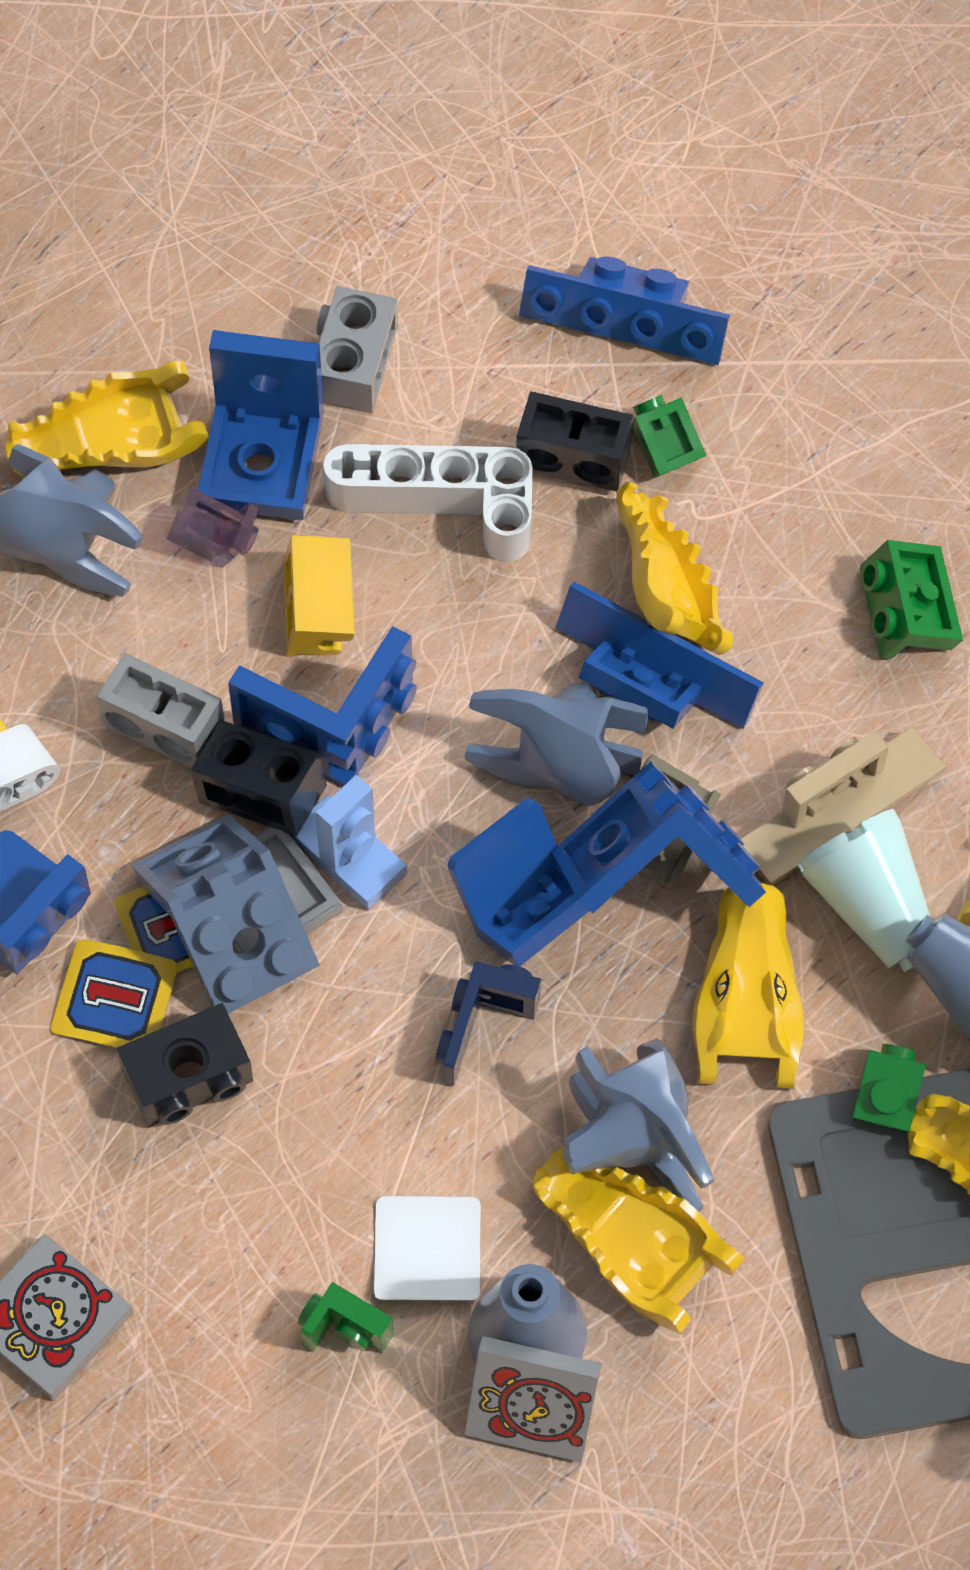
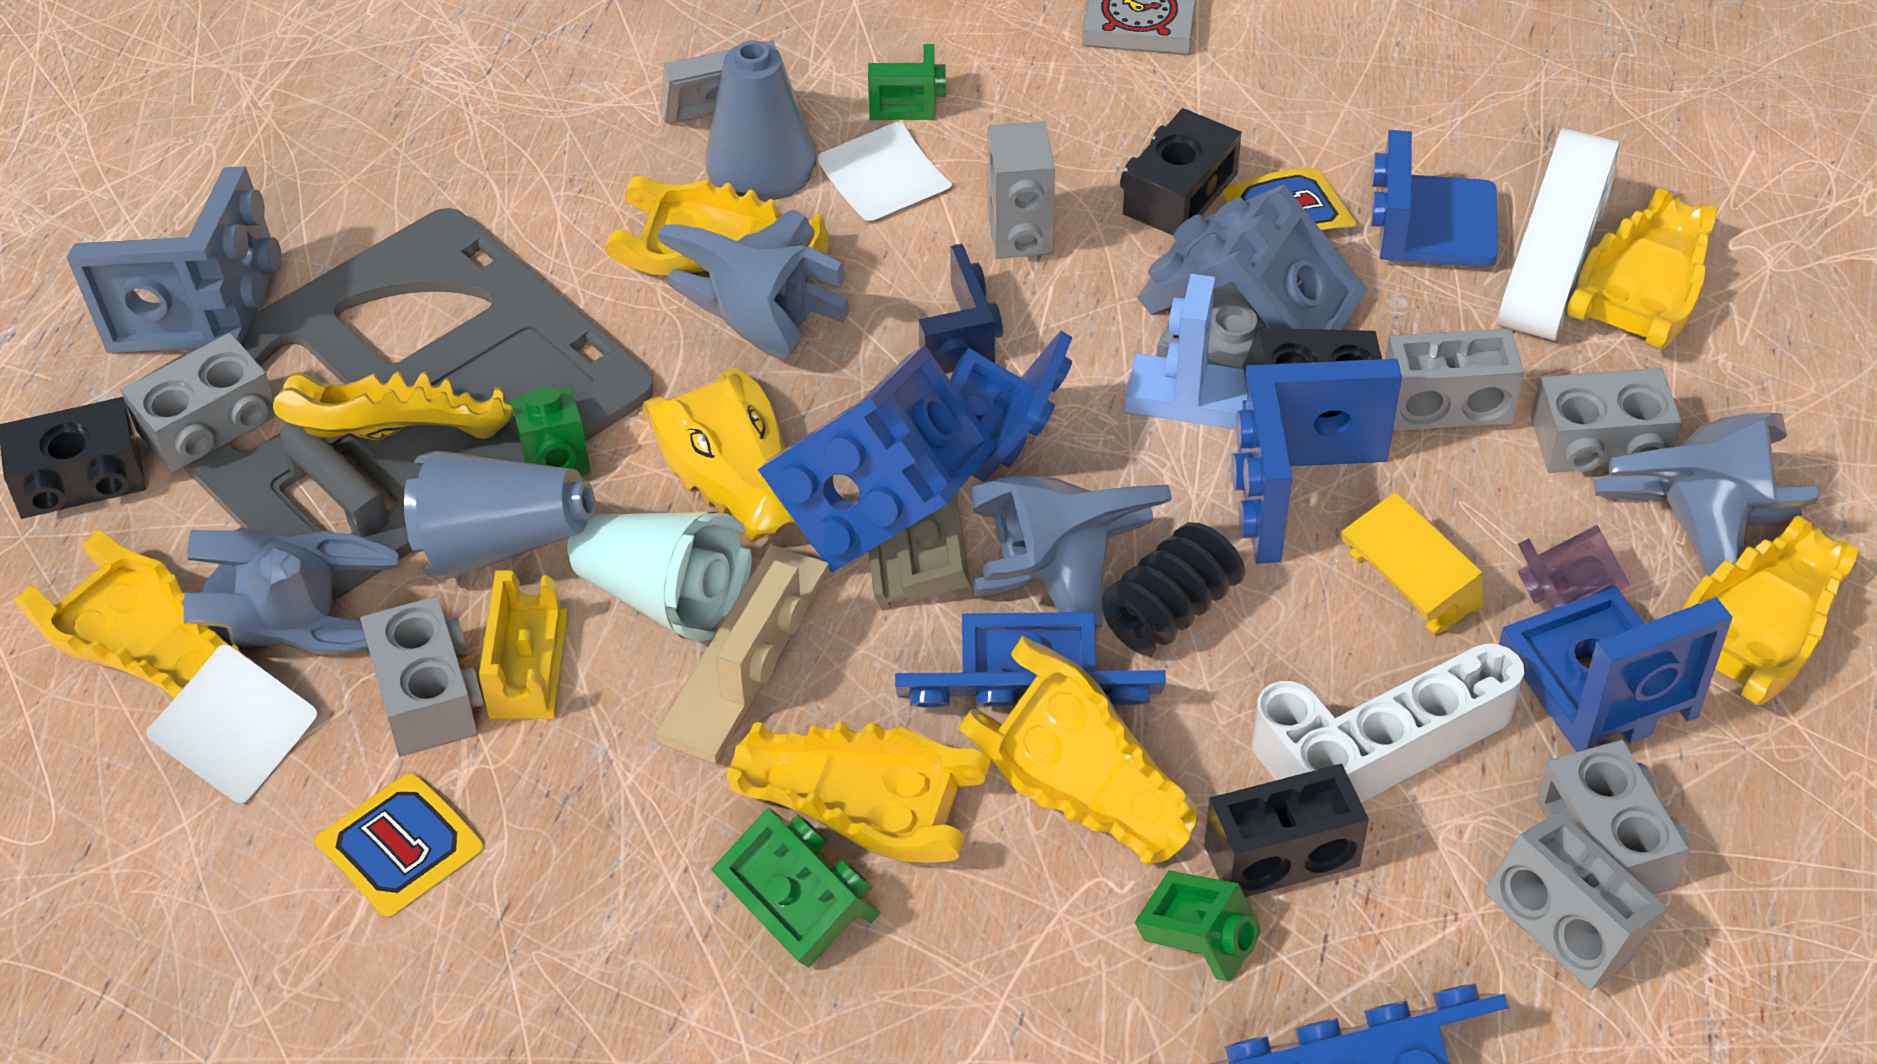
camera: 150 degrees right, 15 degrees down
(64, 638) = (1603, 416): none -> light grey brick
(354, 1090) = (1020, 189): none -> light grey brick
(429, 304) = (1575, 900): none -> light grey brick
(503, 664) = (1171, 587): none -> black piece
(829, 638) = (868, 785): none -> yellow animal

